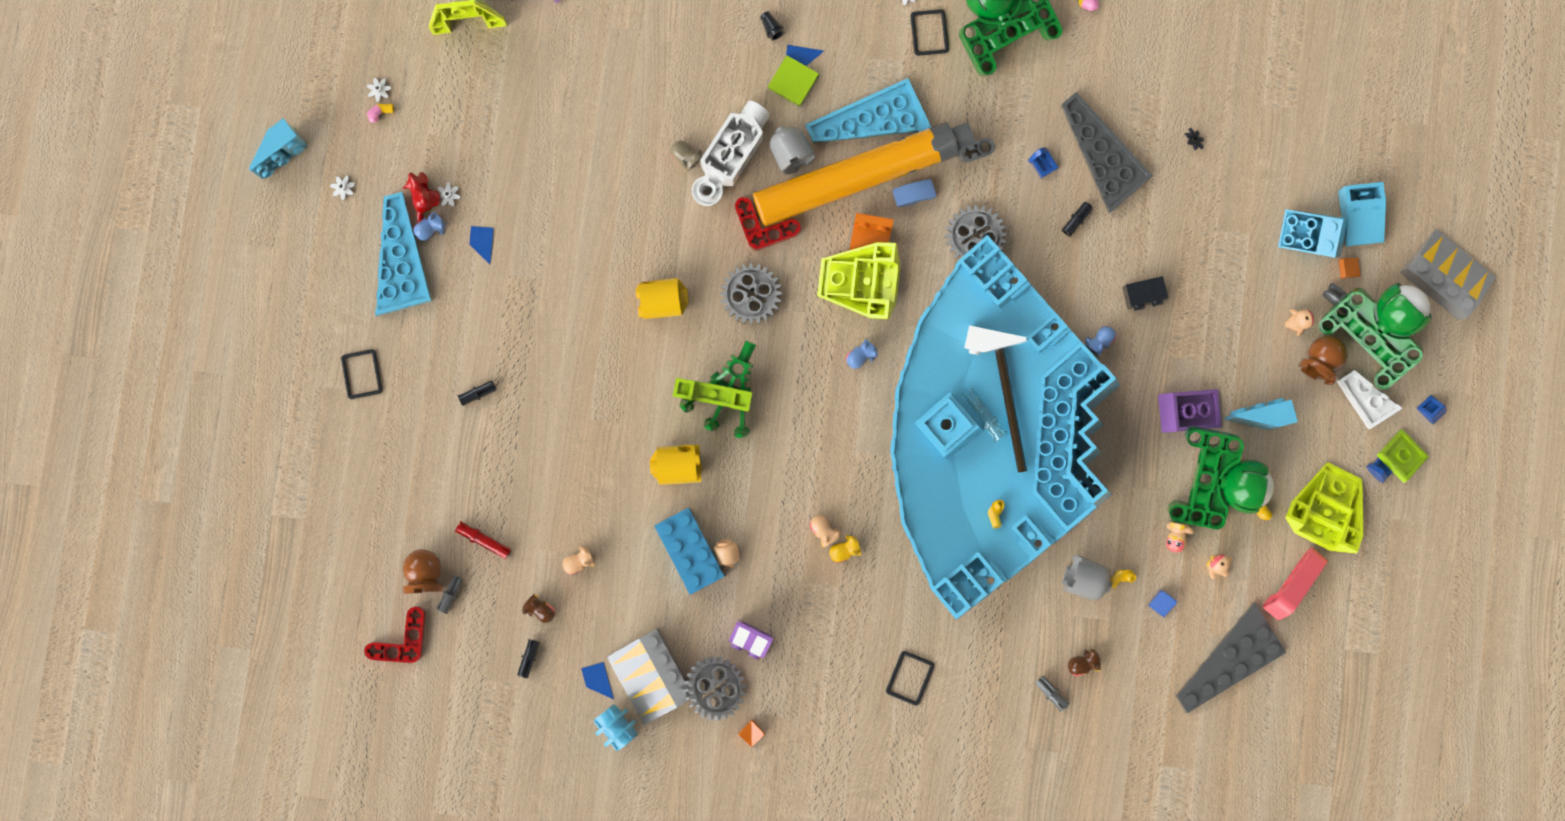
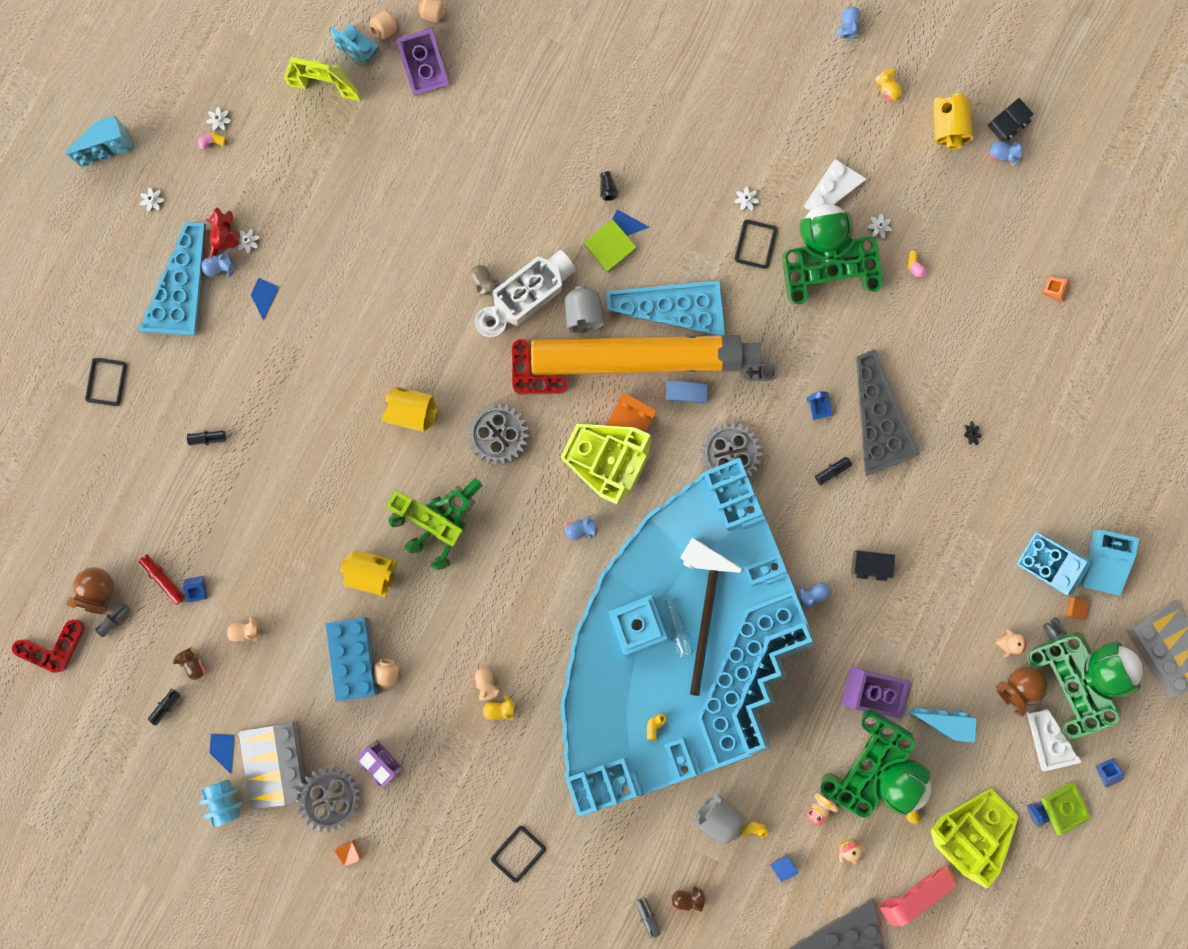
camera: 15 degrees right, 0 degrees up
(517, 538) = (195, 589): none -> blue slope

